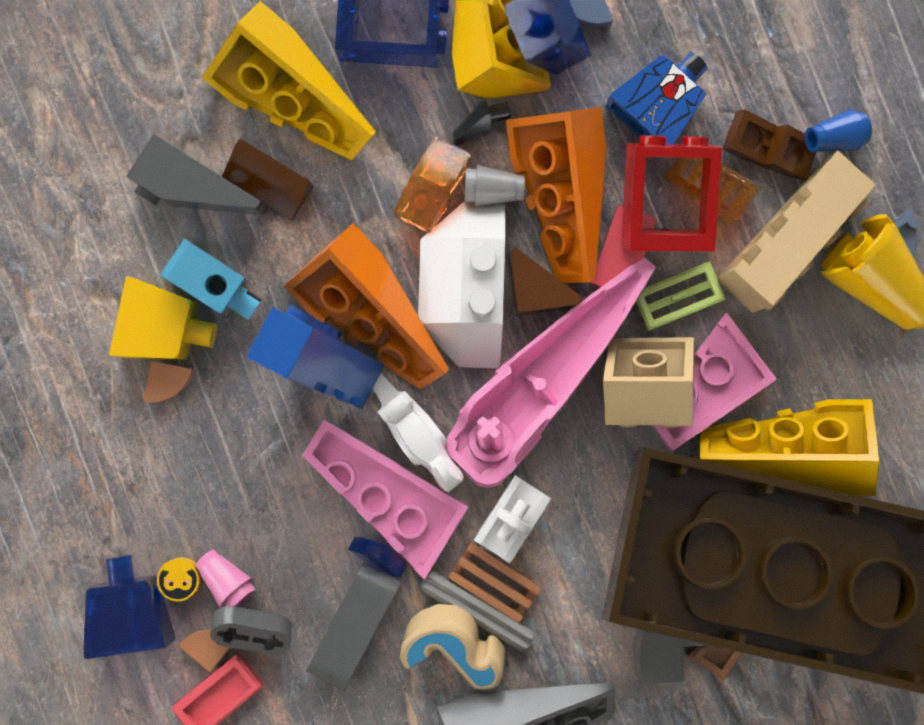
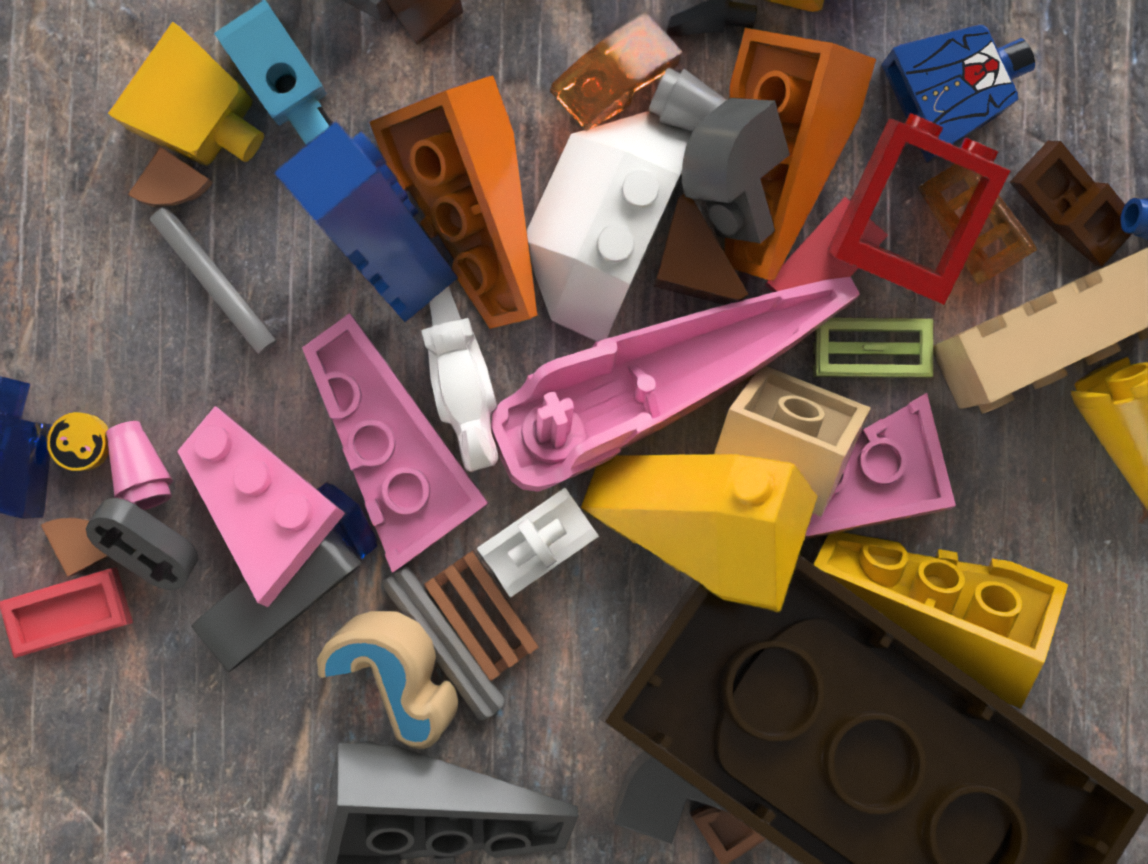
camera: 20 degrees right, 0 degrees up
(223, 434) = (213, 280): none -> light grey bar
(316, 570) = (257, 502): none -> bright pink wing
(533, 216) = (725, 166): none -> dark grey brick
(623, 457) = (713, 517): none -> yellow wedge

